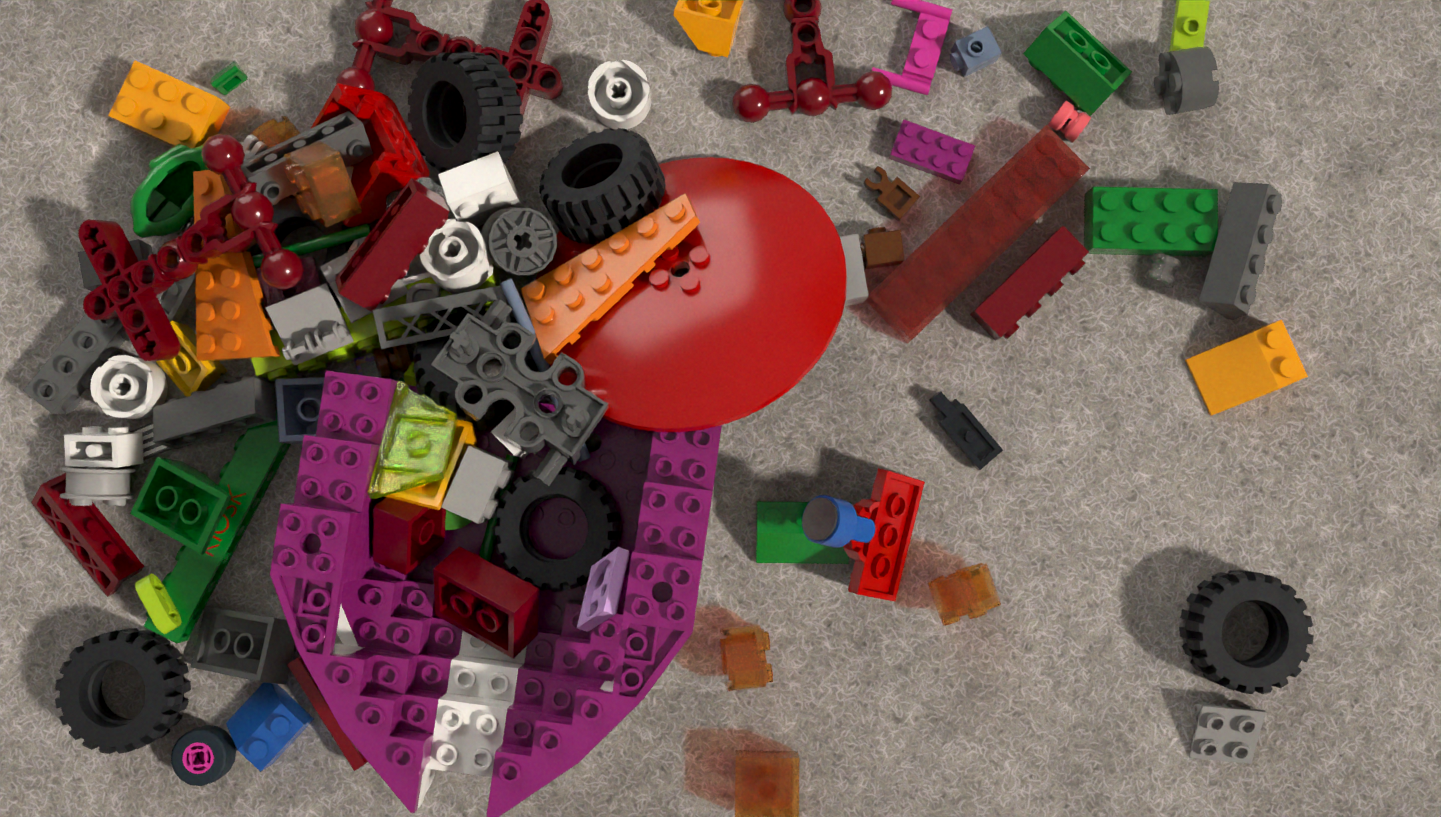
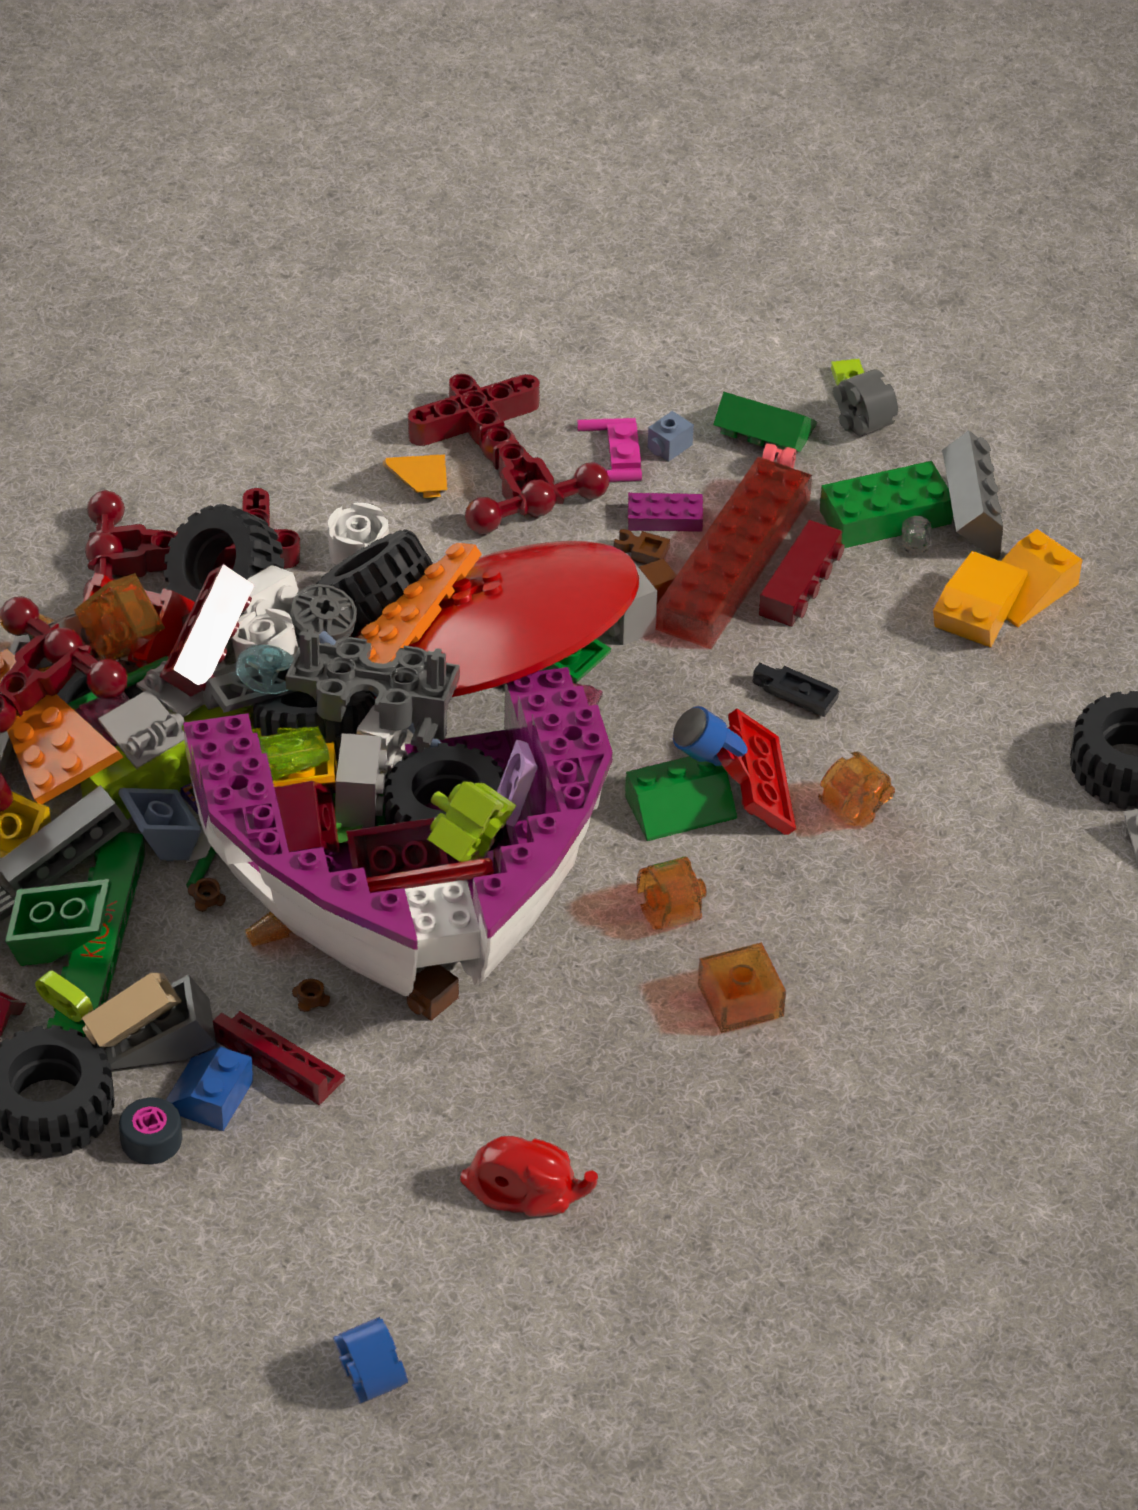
camera: 25 degrees left, 40 degrees down
(203, 657) = (130, 1010): none -> tan brick
(419, 292) = (268, 661): none -> clear light blue piece
(480, 669) = (431, 875): none -> red axle
(531, 647) = (470, 820): none -> lime brick
(1188, 382) = (978, 598): none -> light orange slope

